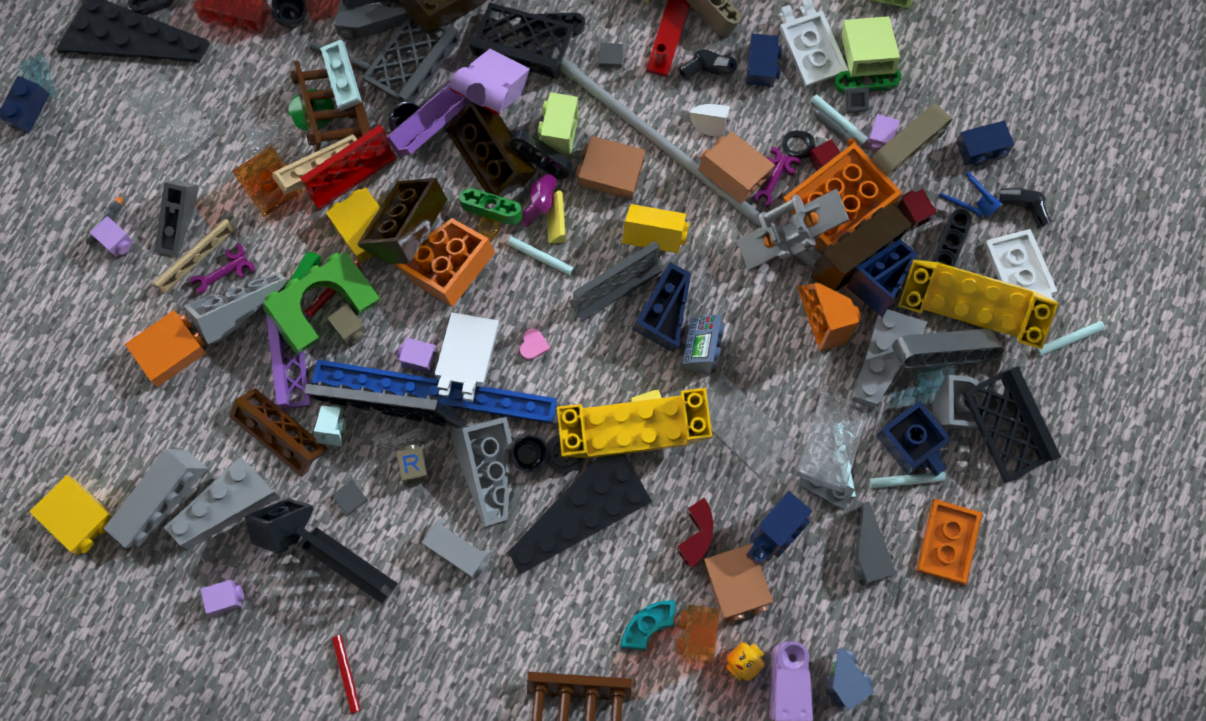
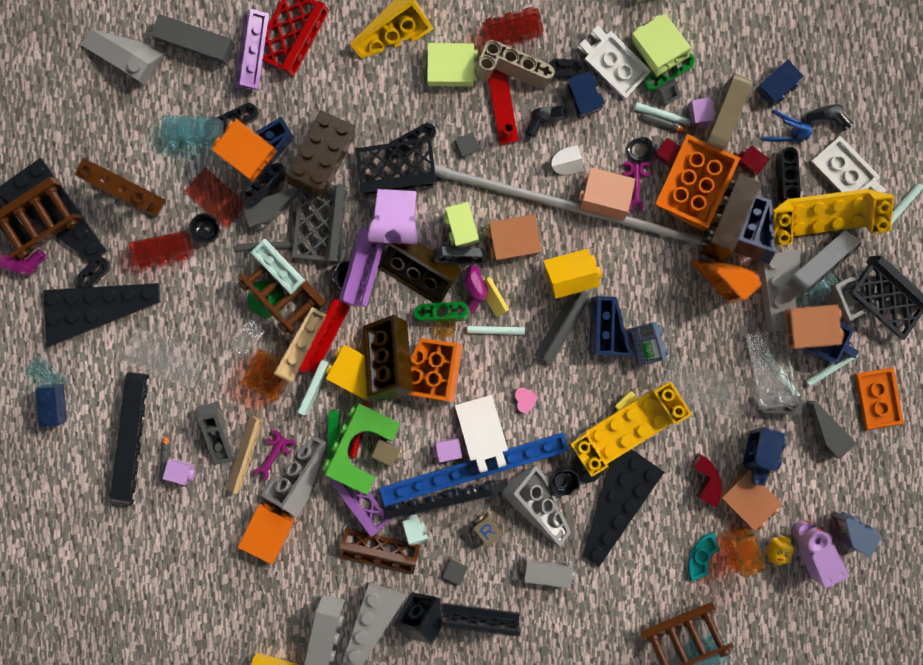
camera: 30 degrees left, 15 degrees up
(80, 179) = (129, 438): none -> black beam
(306, 220) = (314, 387): none -> light aqua tile
(756, 25) = (567, 63): none -> black beam
(795, 236) = (679, 231): light grey piece -> none
(902, 406) = (813, 326): none -> nougat brick

